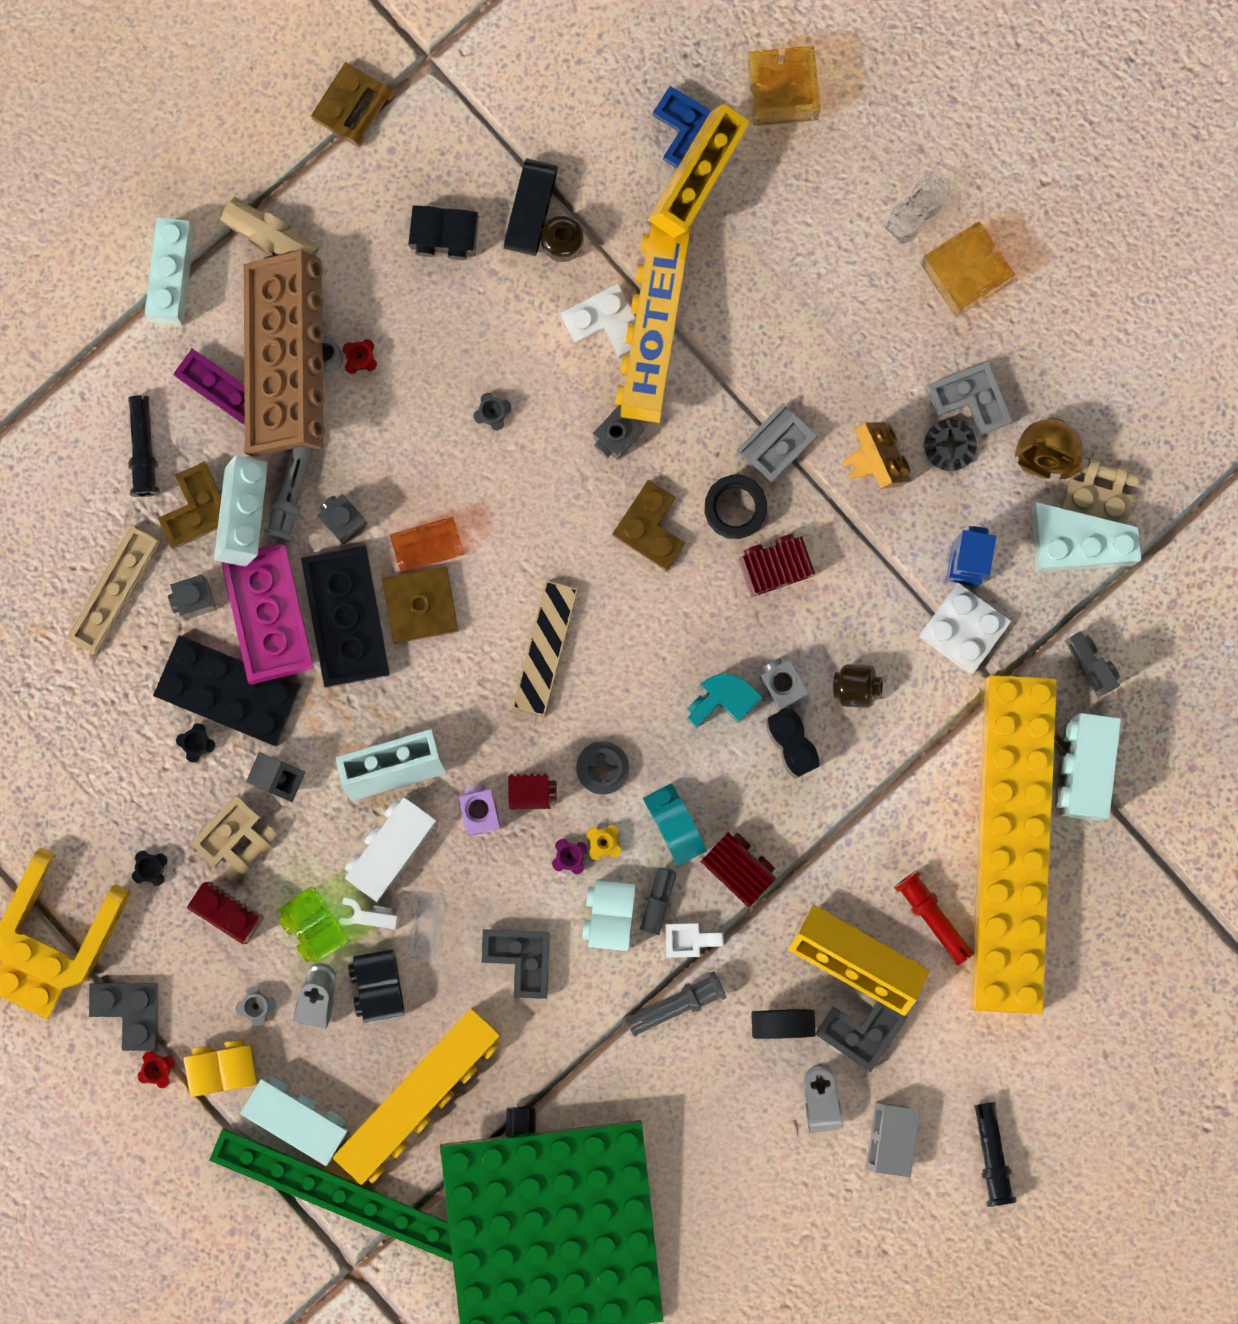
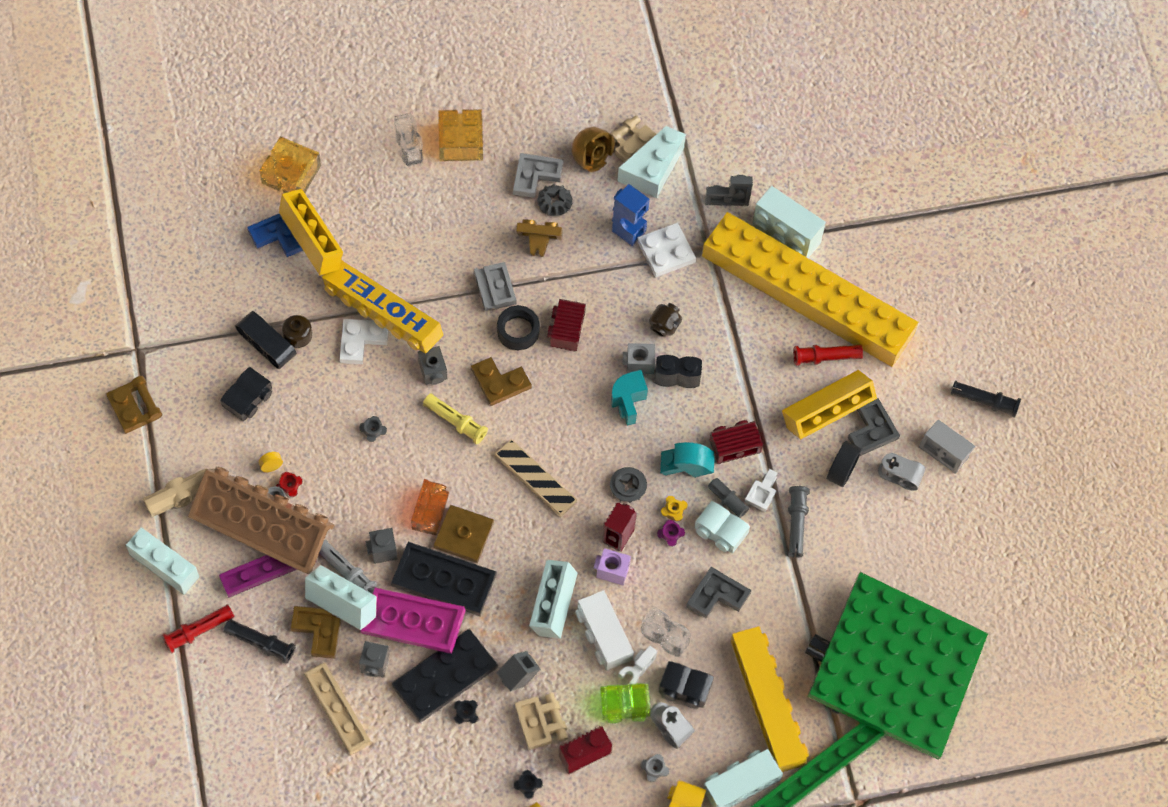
camera: 65 degrees left, 20 degrees down
(102, 354) = (187, 633): none -> red pin
(372, 316) = (270, 462): none -> yellow tile
(563, 519) = (463, 423): none -> light yellow pin

